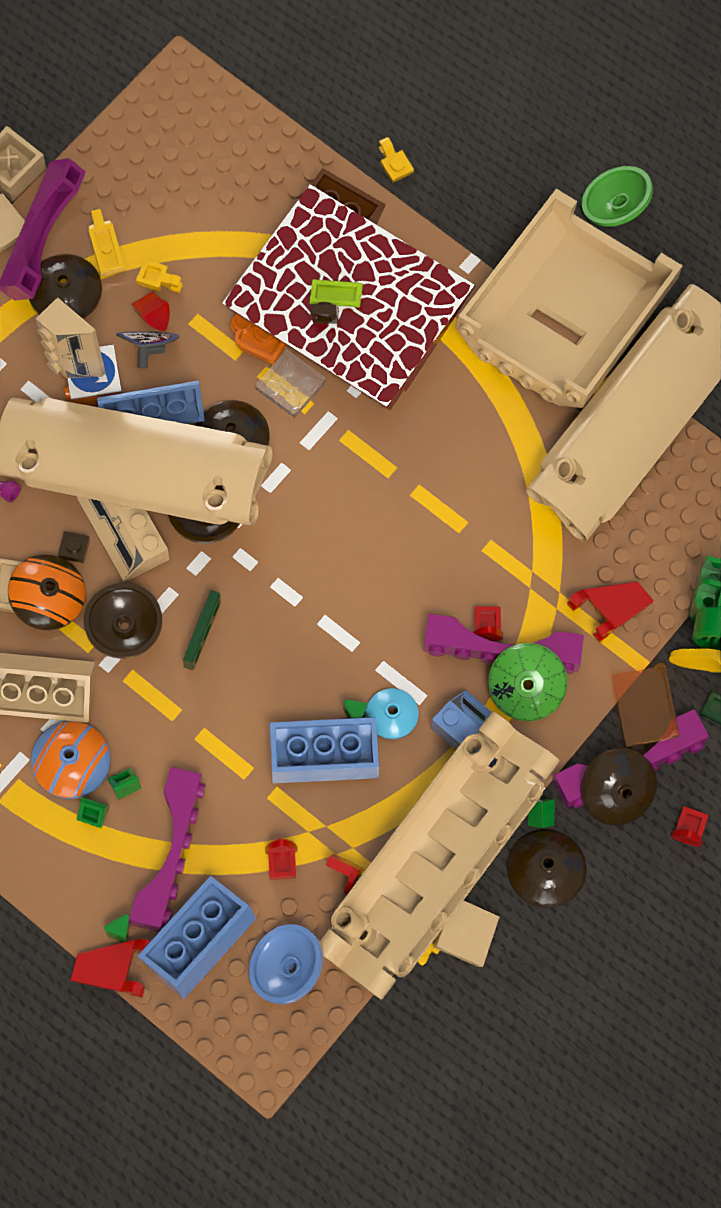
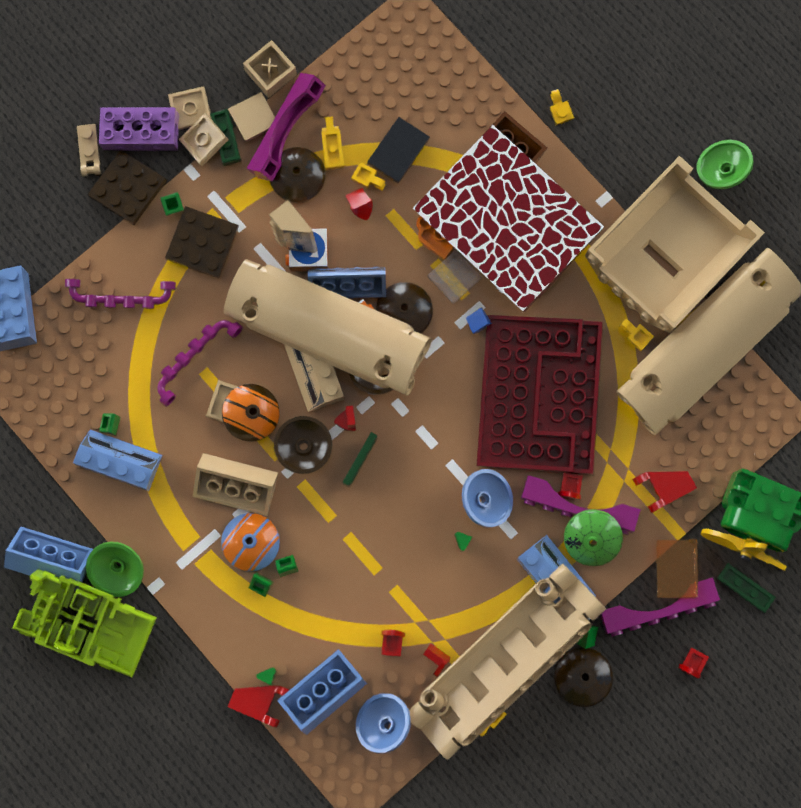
camera: 10 degrees right, 10 degrees up
(74, 547) = (275, 379): dark brown plate -> none
(148, 343) = (353, 228): shield -> none
(153, 902) = (326, 583): magenta arch -> none
(177, 582) = (346, 419): none -> red tile
(192, 239) = (398, 150): none -> black tile
(324, 313) = (487, 231): dark brown plate -> none
(324, 750) = (435, 566): medium blue slope -> none
(331, 433) = (478, 320): none -> blue slope
(336, 292) = (499, 216): lime tile -> none
(379, 651) = (494, 494): none -> medium blue dish
(395, 725) = (489, 554): medium azure dish -> none
(427, 514) = (540, 394): none -> dark red slope
(468, 934) = (519, 719): tan tile -> none
(543, 422) = (638, 336): none -> yellow plate
(608, 778) = (642, 621): dark brown dish -> none

